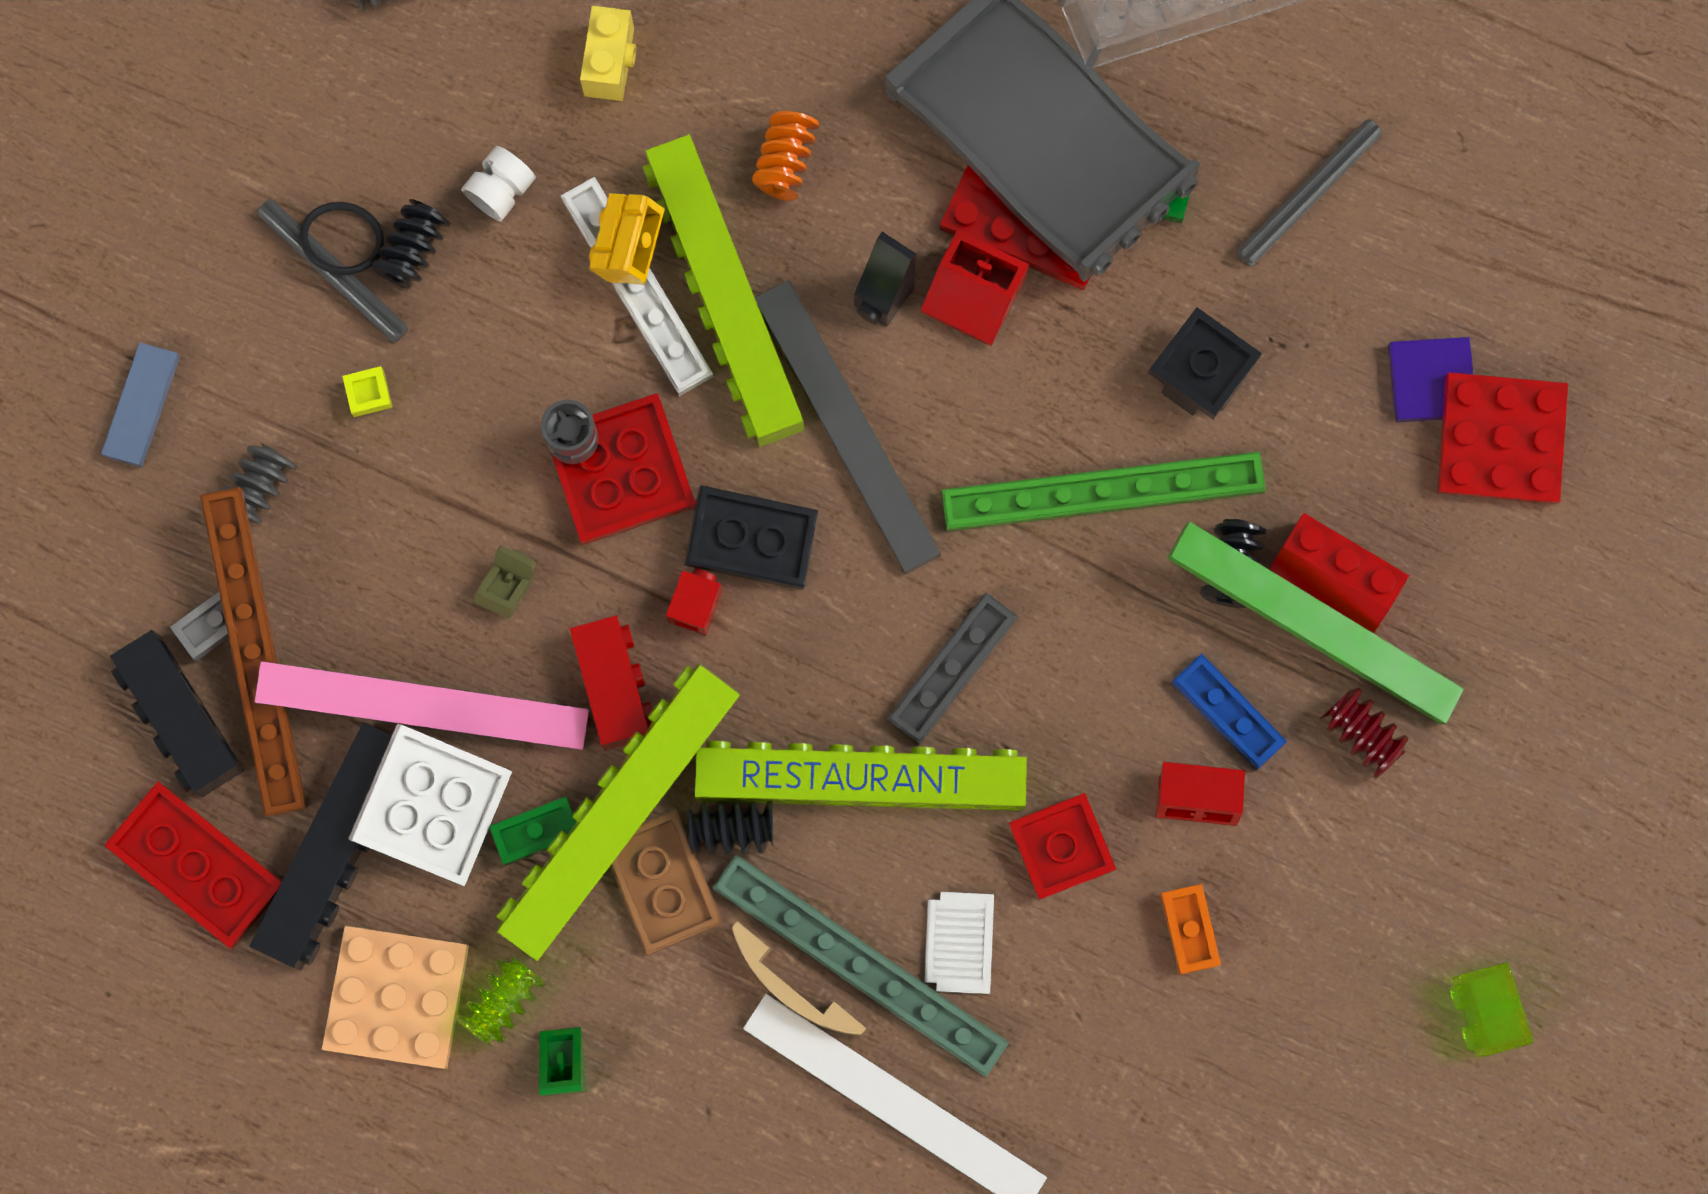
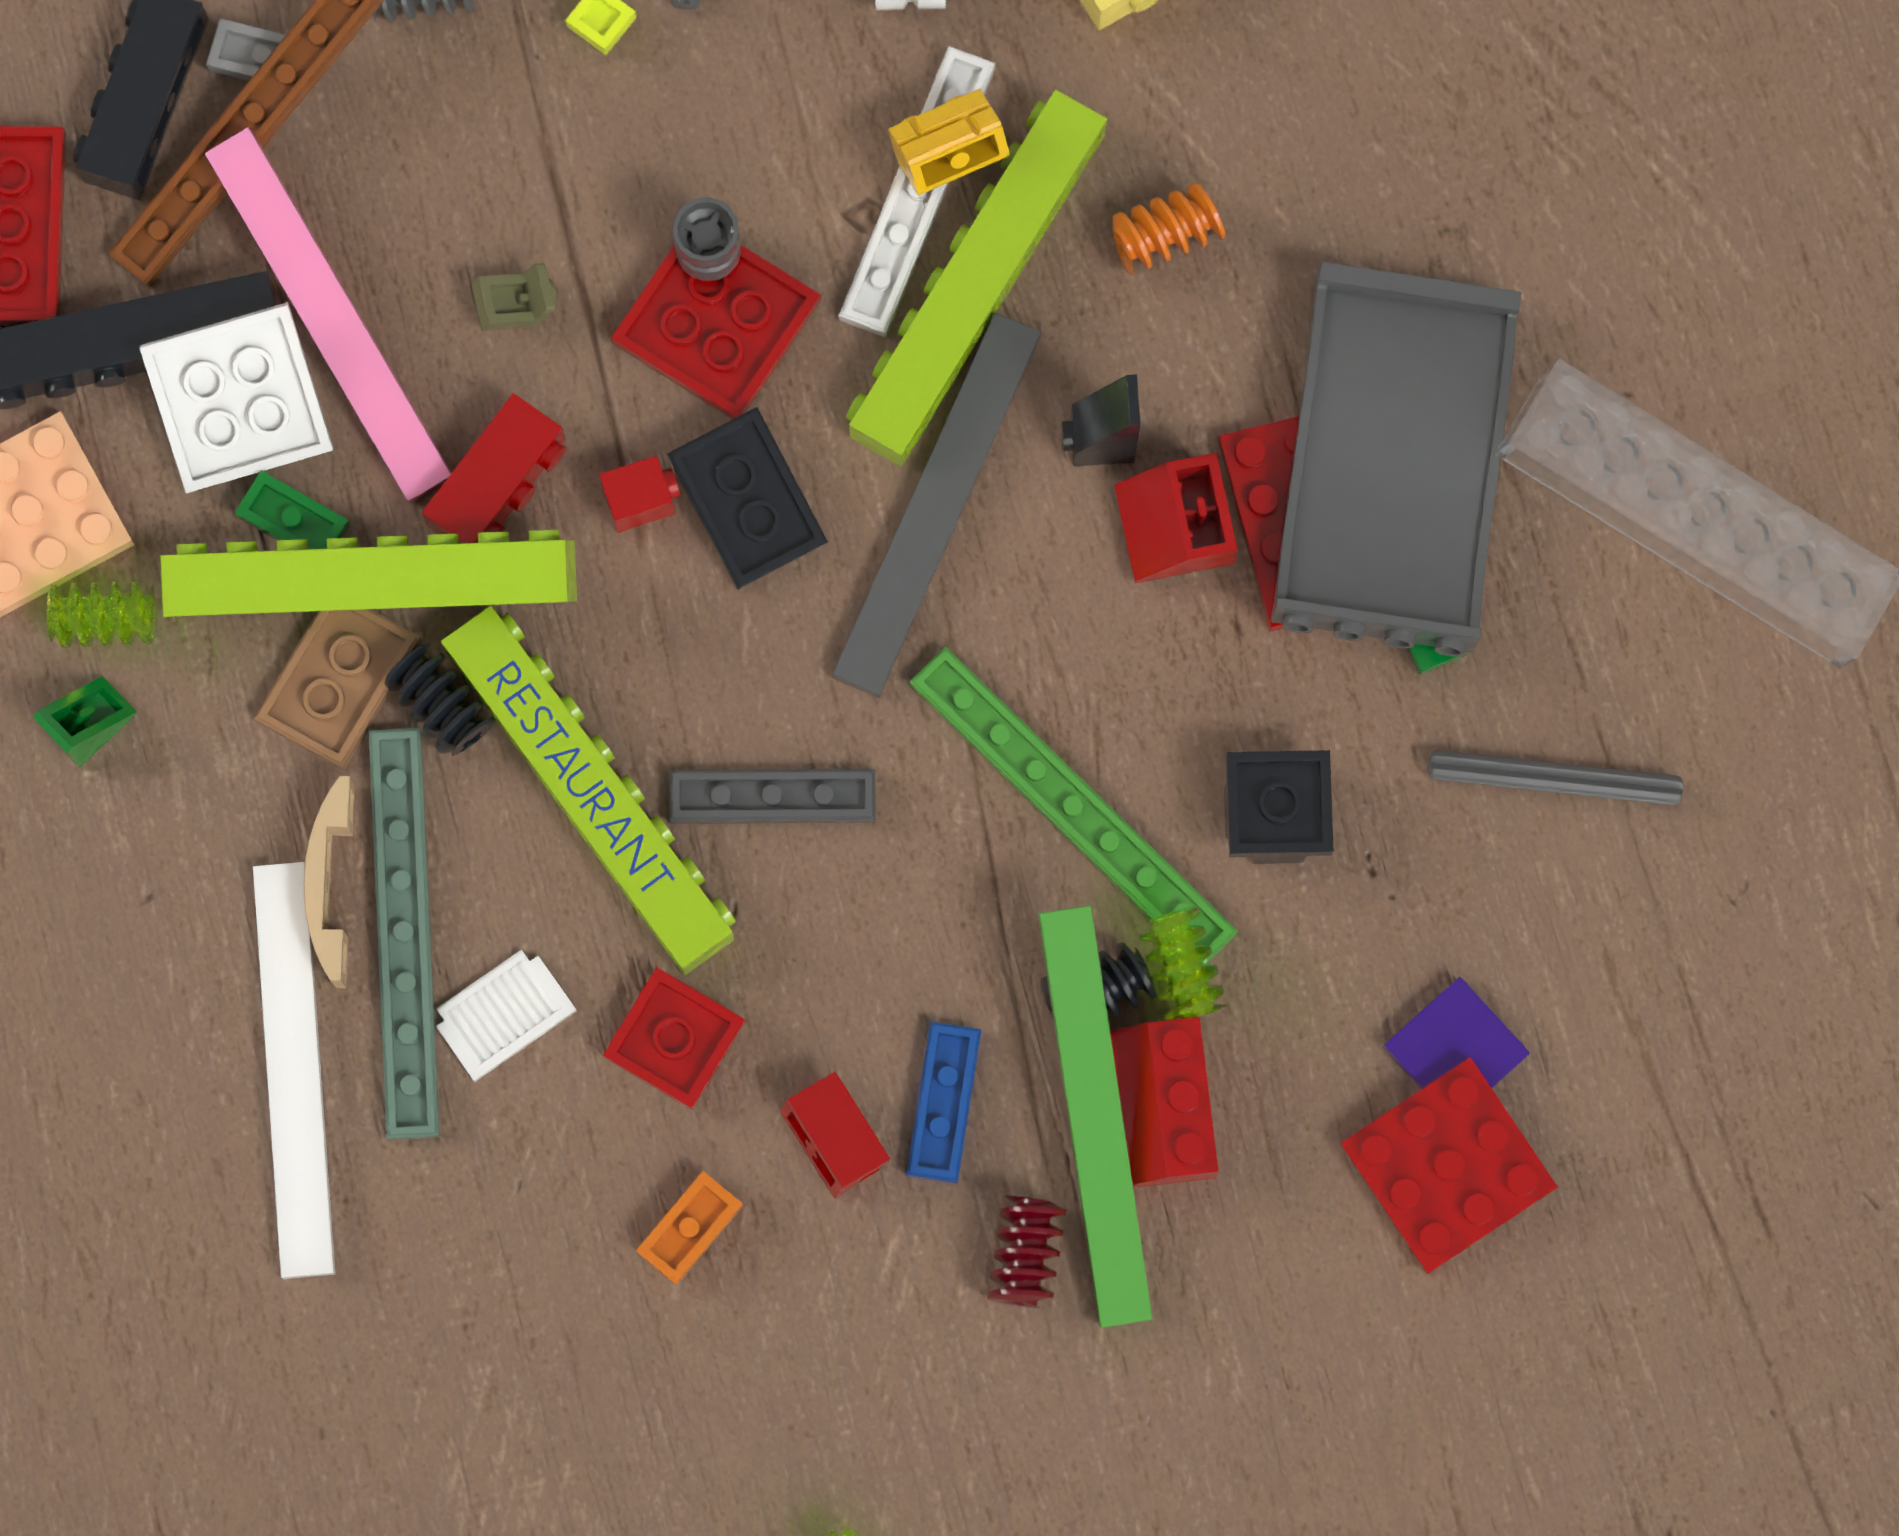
camera: 50 degrees right, 0 degrees up
(1260, 496) = (1183, 964): none -> clear neon green piece

